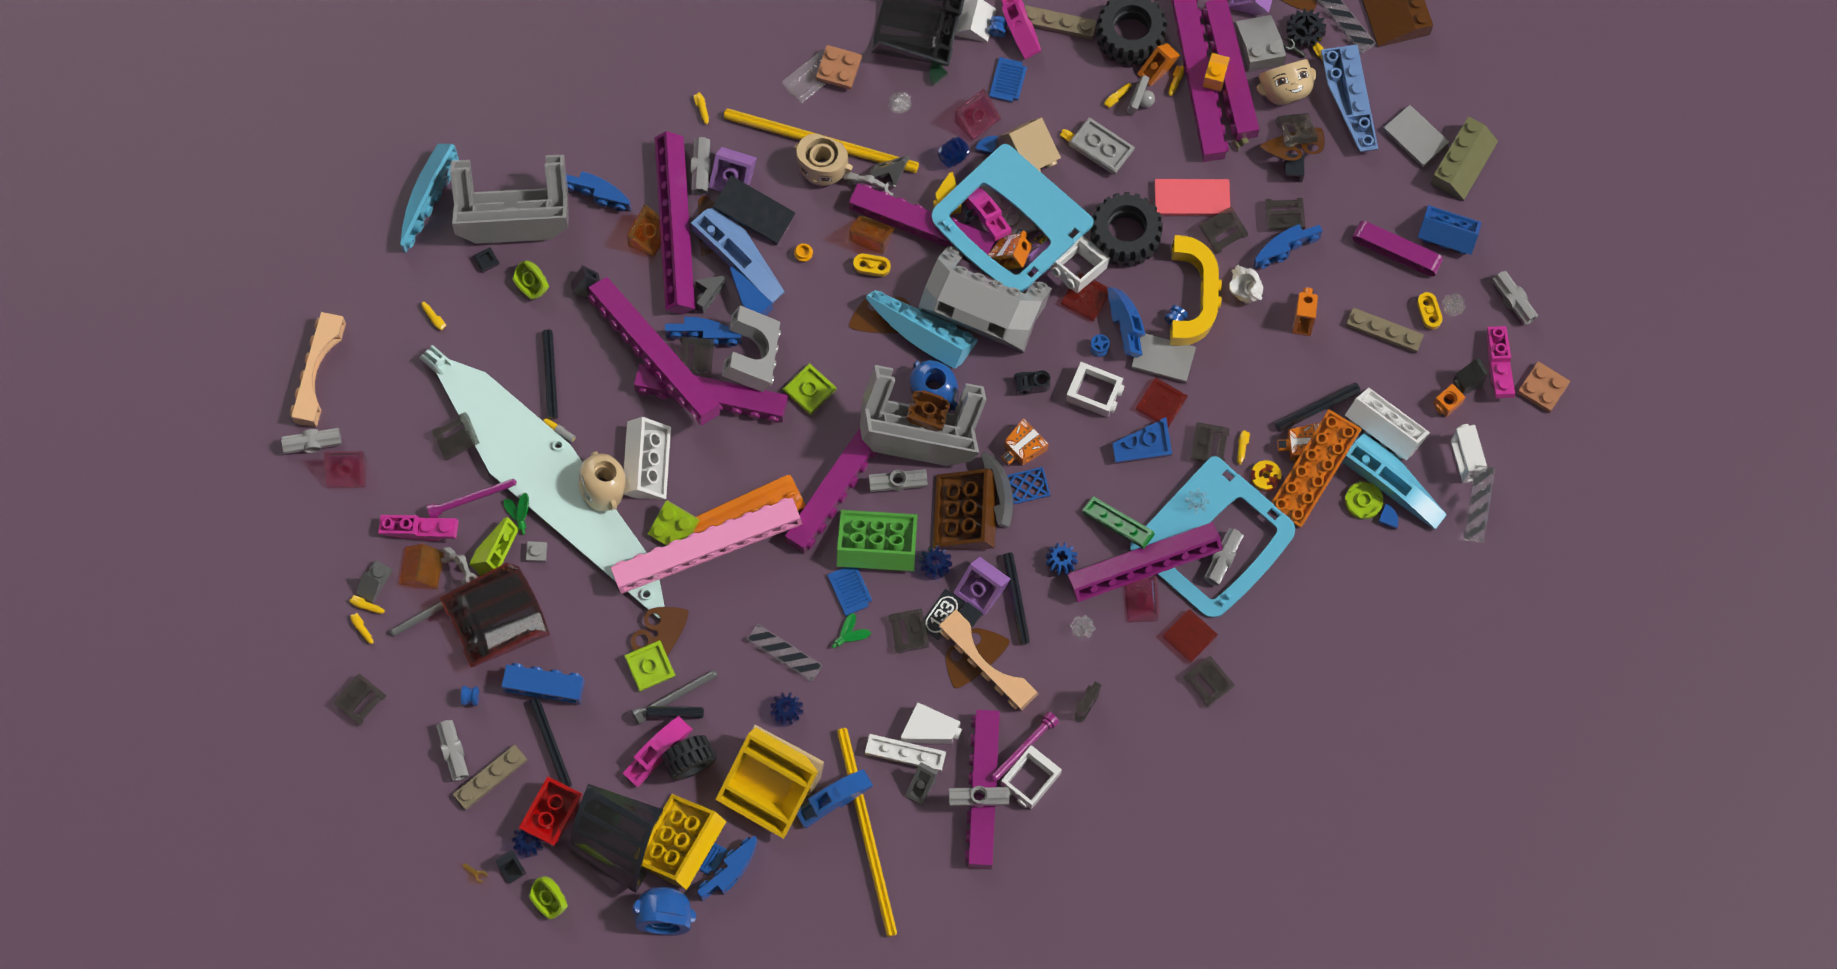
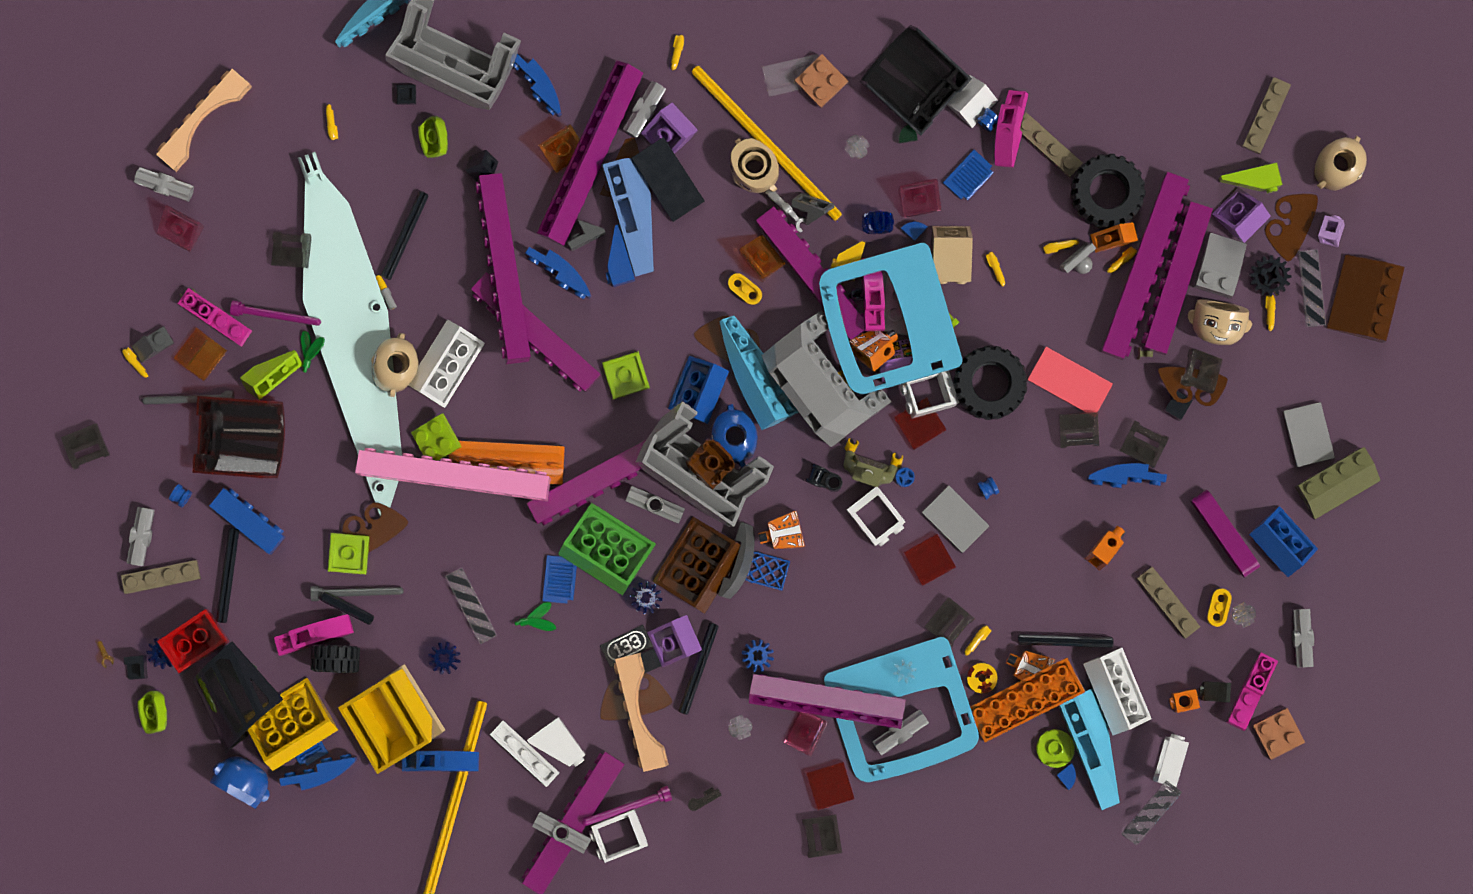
camera: 30 degrees right, 15 degrees up
(359, 625) = (119, 376): yellow piece -> none
(460, 560) = (234, 369): light grey piece -> none
(536, 552) = (306, 395): light grey plate -> none
(702, 355) = (546, 294): clear smoke plate -> none
(765, 333) = (612, 304): light grey arch -> none
(803, 252) = (691, 243): light orange plate -> none
(881, 351) = (699, 387): none -> blue slope
(915, 630) = (594, 649): clear smoke plate -> none
(922, 783) = (522, 789): dark grey slope -> none
(1064, 353) = (869, 470): none -> olive torso
(1101, 146) = (1016, 288): light grey tile -> none
(1118, 522) = (825, 651): green tile -> none
(1131, 326) = (943, 471): blue slope -> none
(1145, 444) = (891, 590): blue wing -> none
(1198, 254) = (1043, 443): yellow arch -> none
(1216, 72) = (1160, 277): light orange slope -> none
(1246, 285) = (1067, 493): white hair -> none
(1292, 46) = (1246, 286): pearl dark grey hand -> none
(1349, 91) = (1270, 362): medium blue wedge -> none

